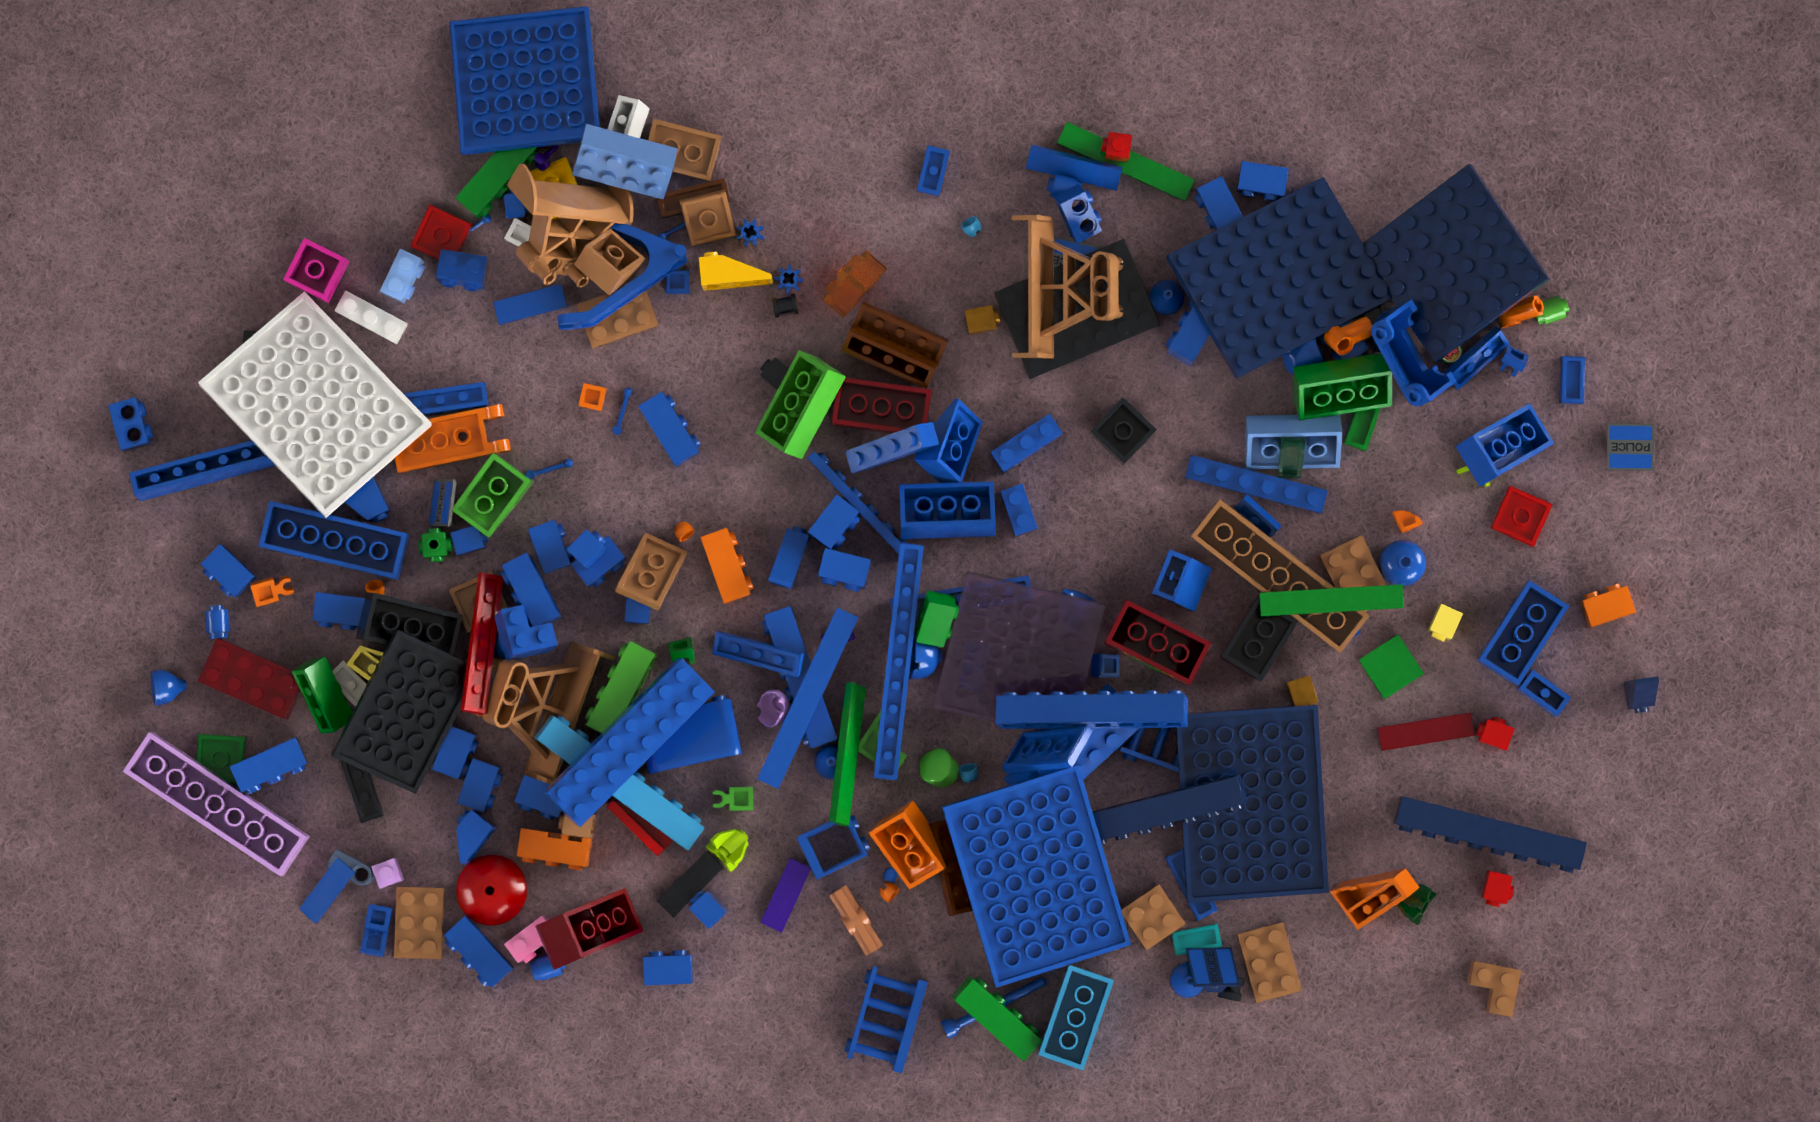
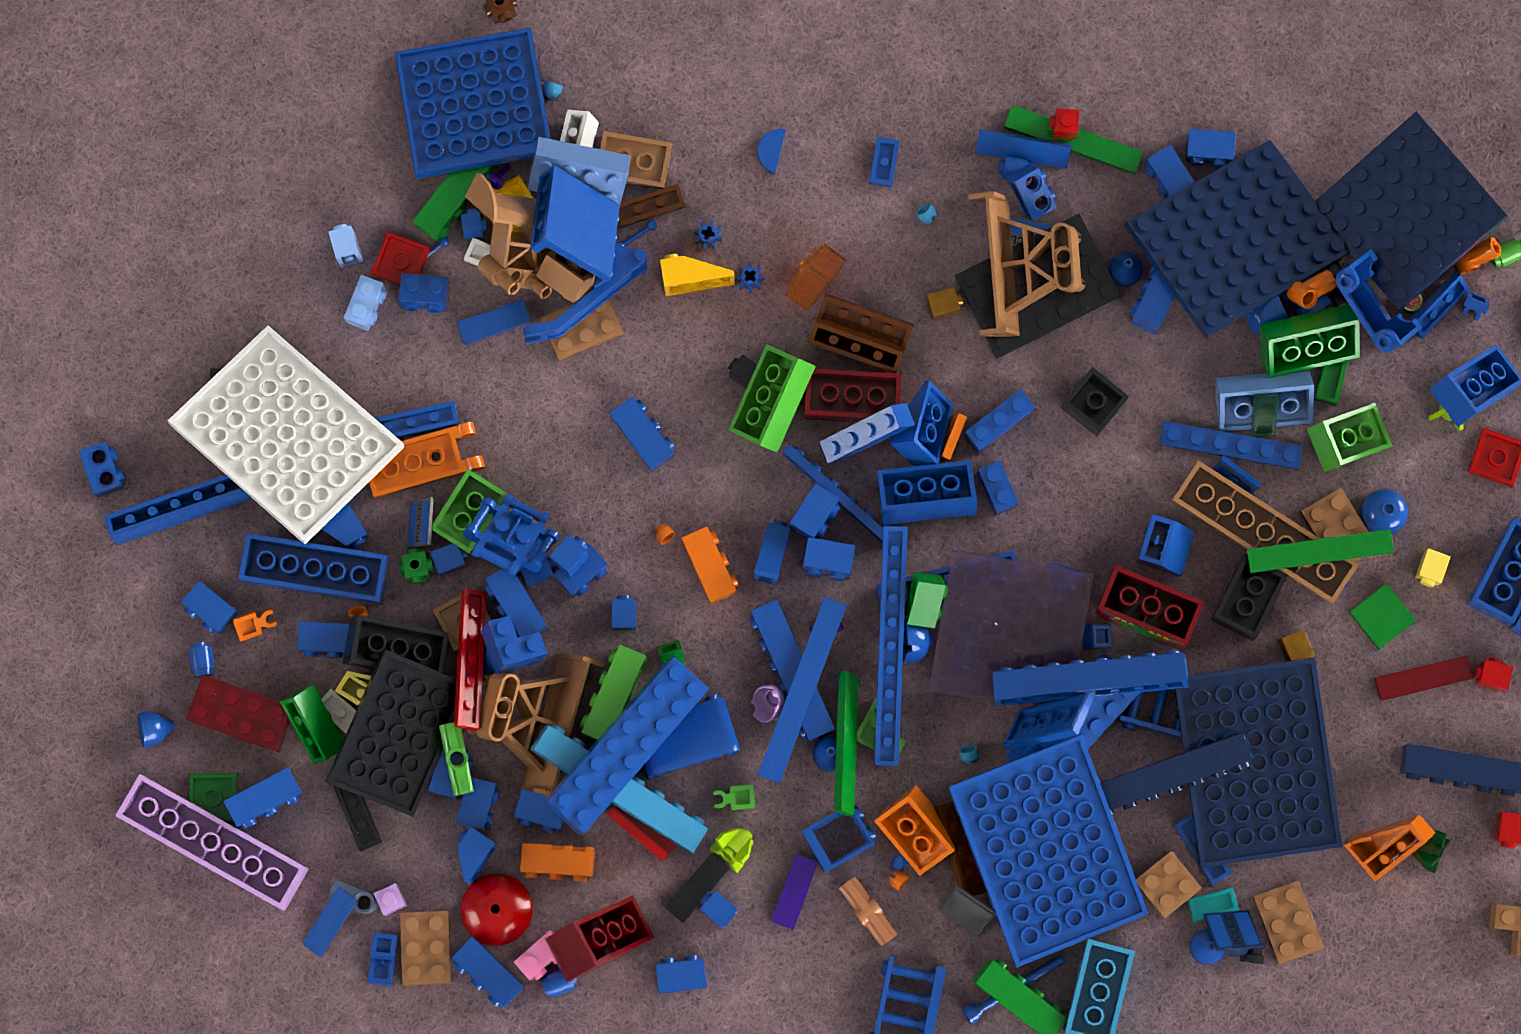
camera: 10 degrees left, 5 degrees down
(316, 270) = (278, 303): dark pink brick -> none
(371, 317) = (336, 346): white plate -> none
(386, 217) = (345, 245): none -> light blue brick
(463, 756) = (459, 775): none -> bright green piece
(530, 523) = (511, 535): none -> blue brick
(531, 474) = (543, 476): blue hinge -> none
(569, 828) = (574, 839): medium nougat brick -> none
(592, 397) = (563, 408): orange plate -> none
(605, 72) = (552, 90): none -> dark azure hinge
(616, 216) = (575, 223): none -> blue panel
(617, 429) = (590, 439): blue hinge -> none
(651, 571) = (635, 575): medium nougat plate -> none
(678, 282) = (639, 290): blue tile -> none
(707, 217) = (664, 223): medium nougat tile -> none
(758, 653) = (748, 649): blue tile -> none
(785, 305) = (748, 304): black bush -> none
(820, 148) = (770, 149): none -> blue tile
(939, 768) = (939, 751): bright green hair -> none
(953, 928) = (967, 911): none -> dark grey piece
(978, 454) = (952, 436): none -> orange tile
(1375, 485) = (1349, 437): none -> bright green slope
(1406, 520) = (1383, 470): orange tile -> none

